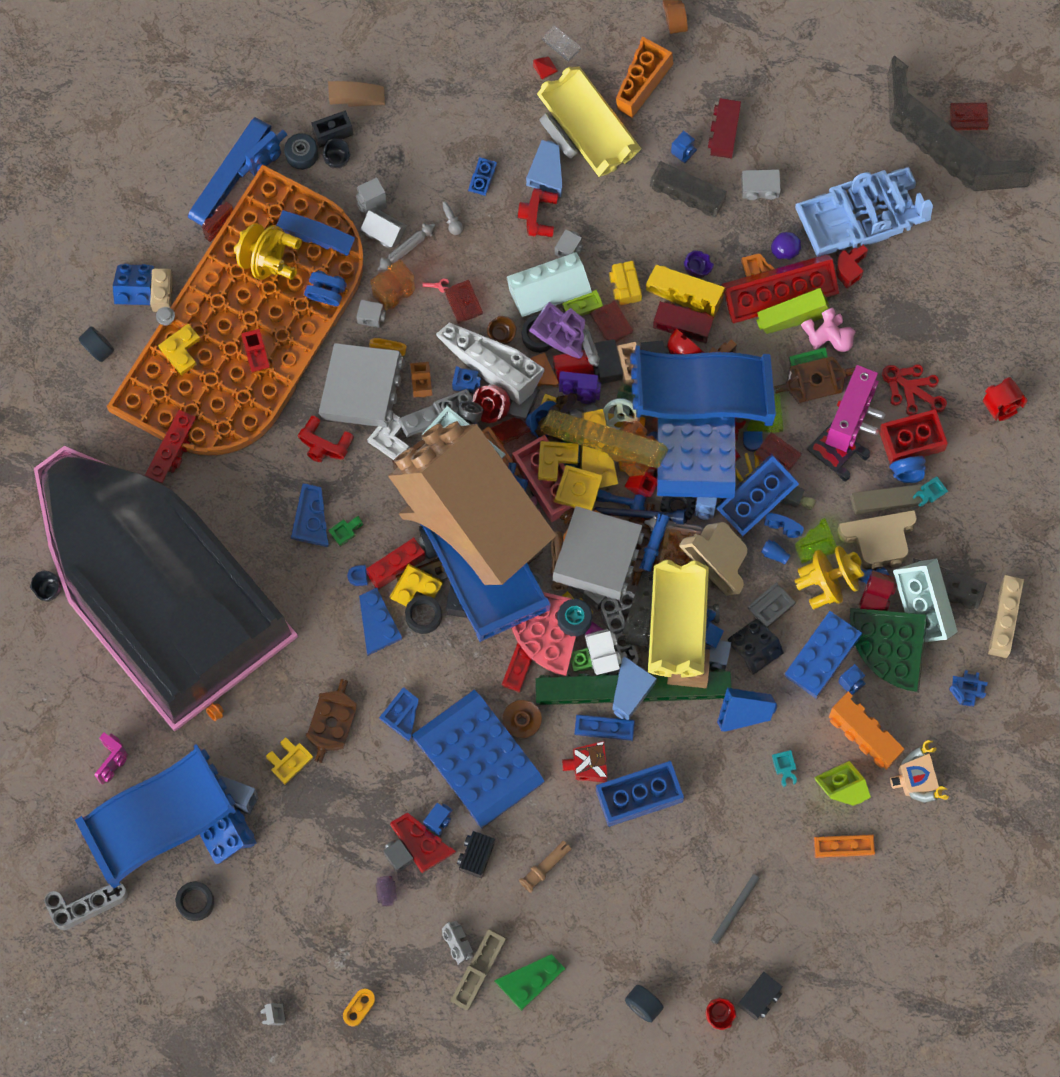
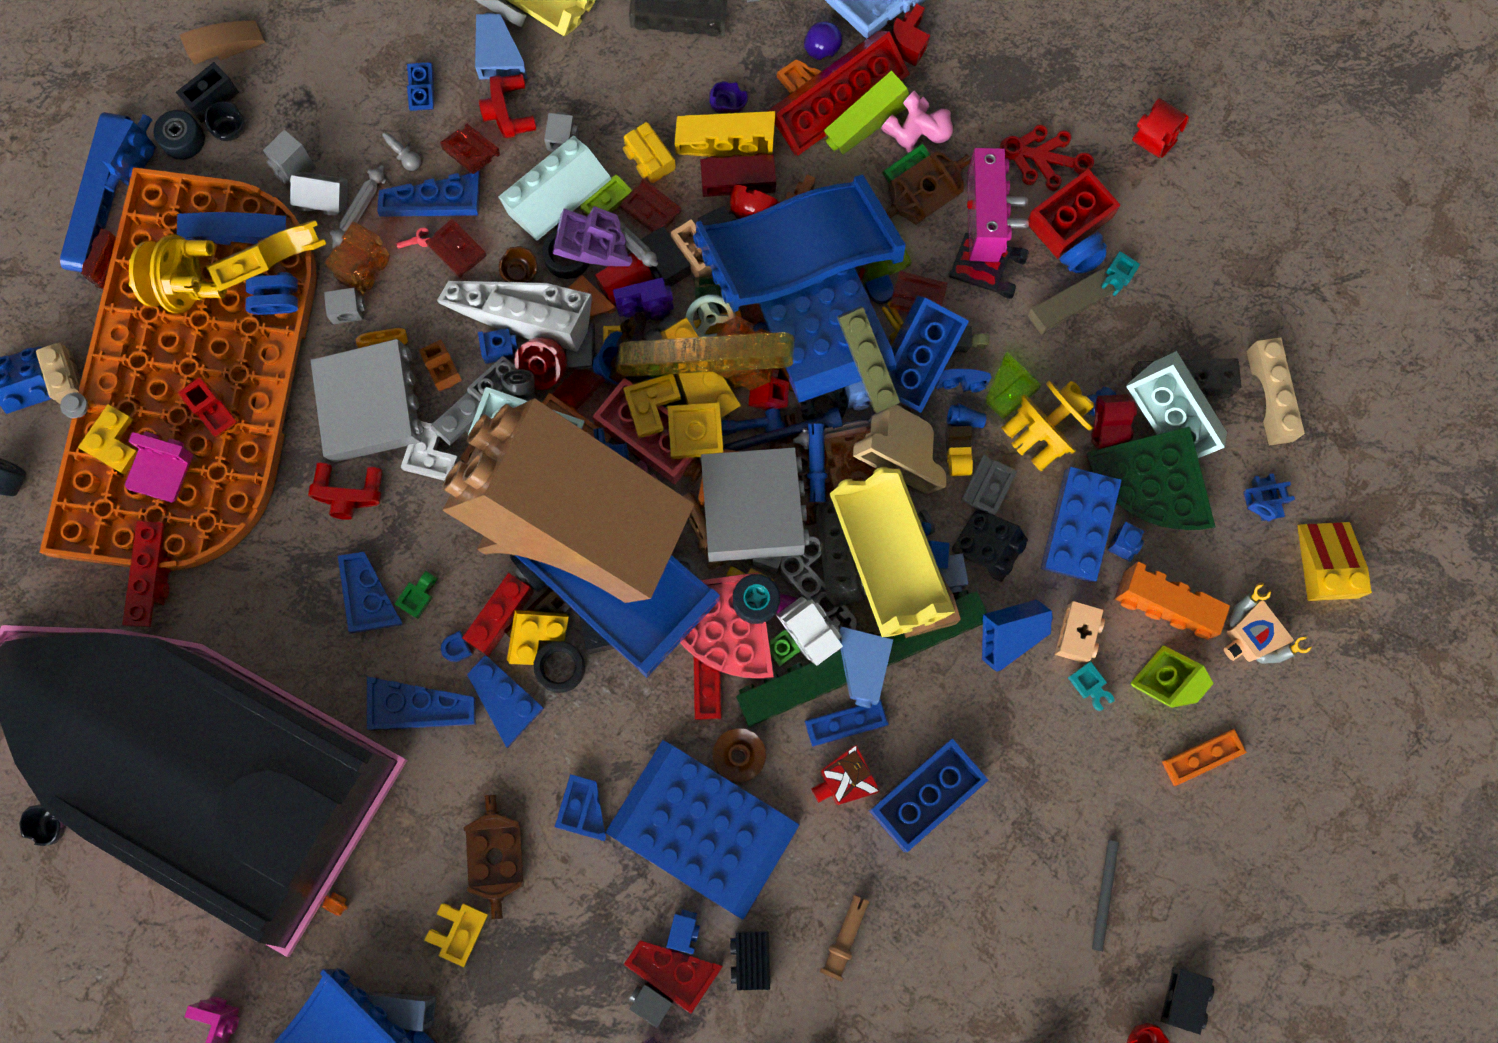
camera: 25 degrees left, 5 degrees up
(206, 378) = (158, 466): none -> dark pink bracket
(309, 601) = (409, 706): none -> blue wing
(331, 259) = (264, 255): none -> yellow piece
(461, 260) = (443, 197): none -> blue wing
(500, 234) = (470, 148): none -> clear red plate
(715, 483) = (868, 359): none -> olive plate
(760, 573) = (959, 450): none -> leg
(795, 717) = (1069, 642): none -> light nougat brick
(880, 538) = (1085, 352): tan brick -> none
(994, 749) = (1332, 562): none -> yellow slope

